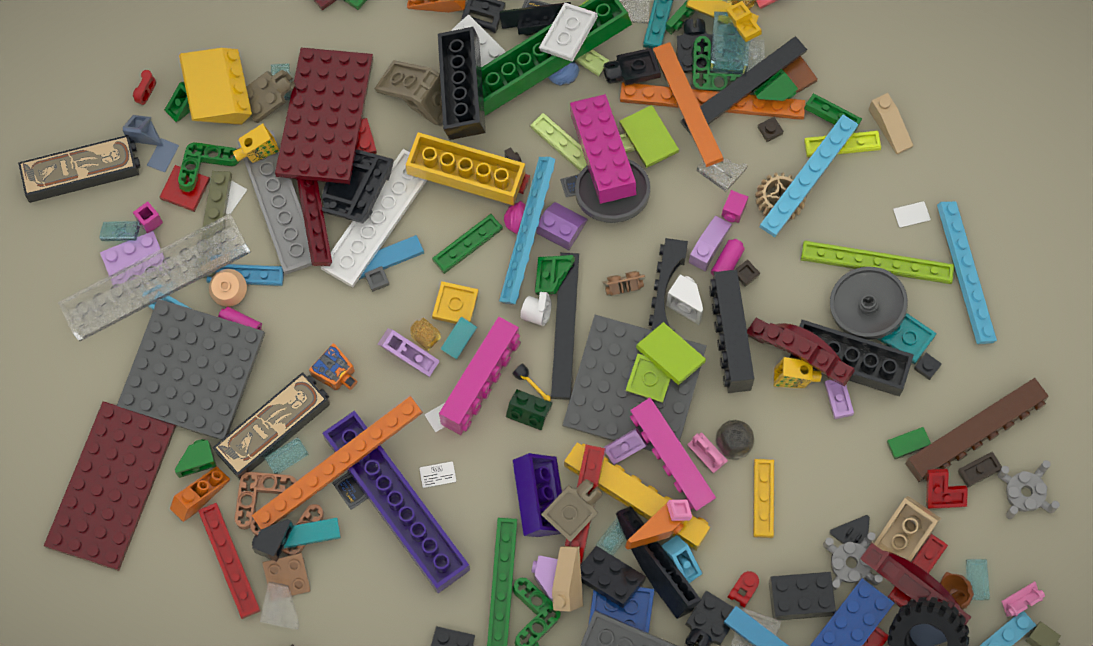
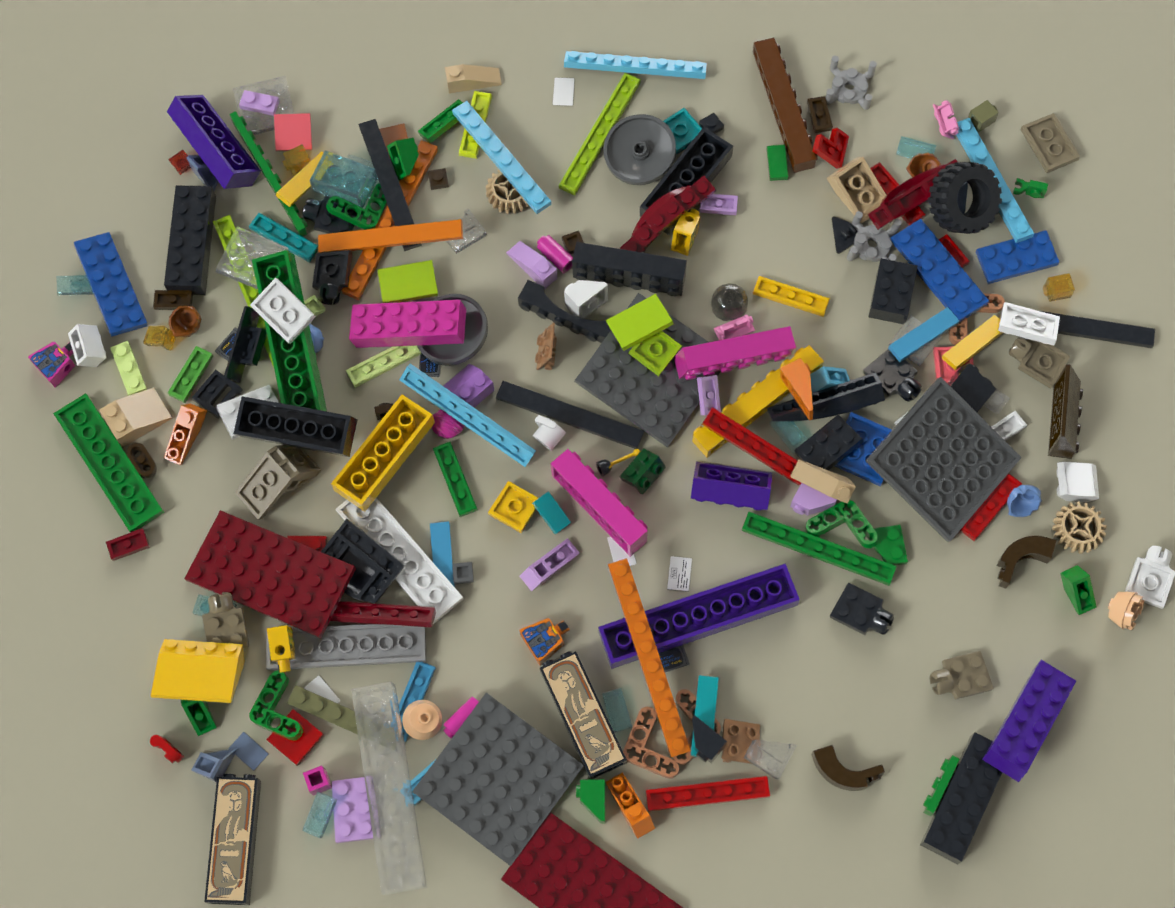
camera: 70 degrees left, 0 degrees up
(425, 333) = (536, 543): clear yellow brick -> none
(551, 272) = (515, 409): green wing -> none
(573, 509) = (760, 453): dark tan plate -> none
(679, 510) = (792, 360): bright pink tile -> none
(734, 206) = (505, 231): dark pink brick -> none
(743, 21) = (326, 158): yellow slope -> none
(747, 582) = (865, 333): red plate -> none

